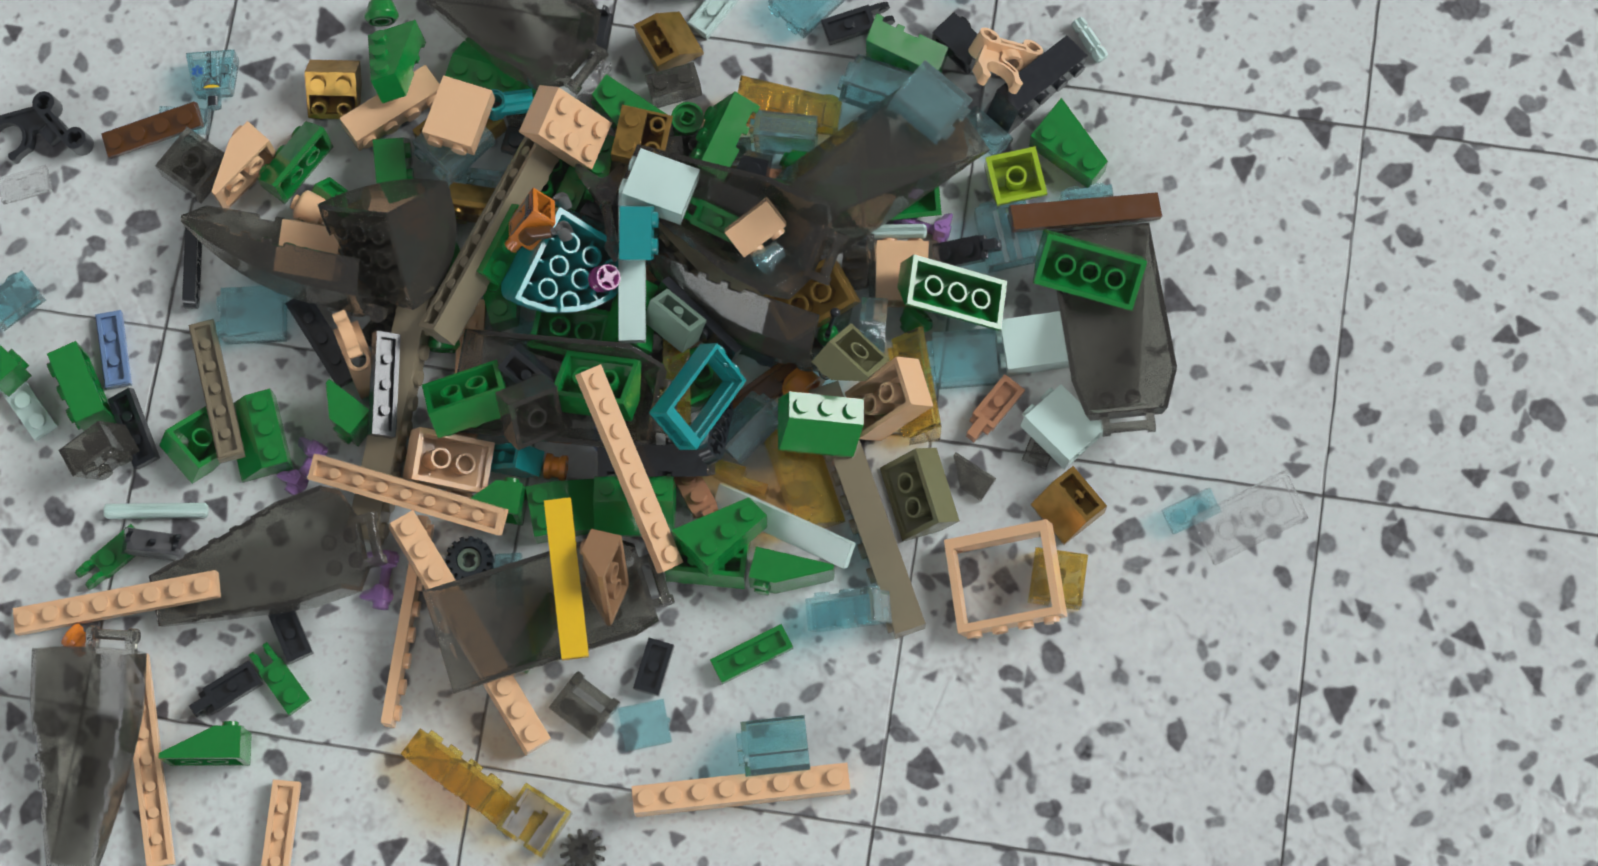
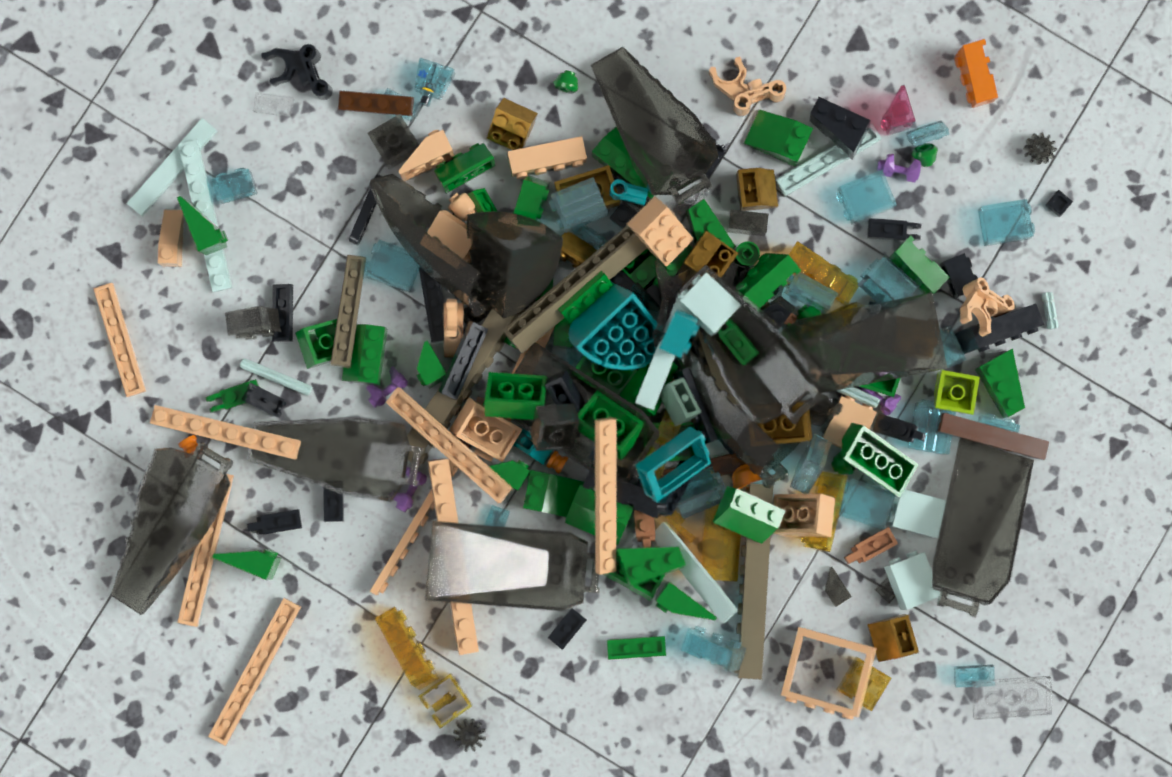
camera: 15 degrees right, 10 degrees up
(79, 386) = (256, 271): green brick -> none
(113, 349) = (290, 249): medium blue tile -> none
(281, 681) = (315, 531): green hinge -> none
(392, 59) = (561, 123): green wedge -> none
(456, 554) = (463, 499): black bush -> none
(458, 116) = (589, 191): light nougat brick -> none
(536, 220) = (612, 294): torso -> none
(566, 579) = (532, 554): yellow tile -> none
(578, 712) = (505, 639): clear smoke plate -> none
(605, 572) = (560, 558): medium nougat slope -> none
(609, 280) = (646, 357): magenta wheel -> none
(644, 725) = (545, 664): clear light blue piece -> none
(739, 790) = (592, 738): light nougat brick -> none
(756, 227) = (762, 362): light nougat brick -> none
(768, 257) = (762, 387): clear light blue piece -> none
(773, 745) = (625, 719): clear light blue brick -> none
(828, 329) = (784, 448): hinge -> none
(850, 357) = (789, 482): olive slope -> none
(919, 493) = (795, 585): olive slope -> none
(931, 103) = (921, 321): clear light blue brick -> none
(1088, 269) = (978, 480): green slope -> none

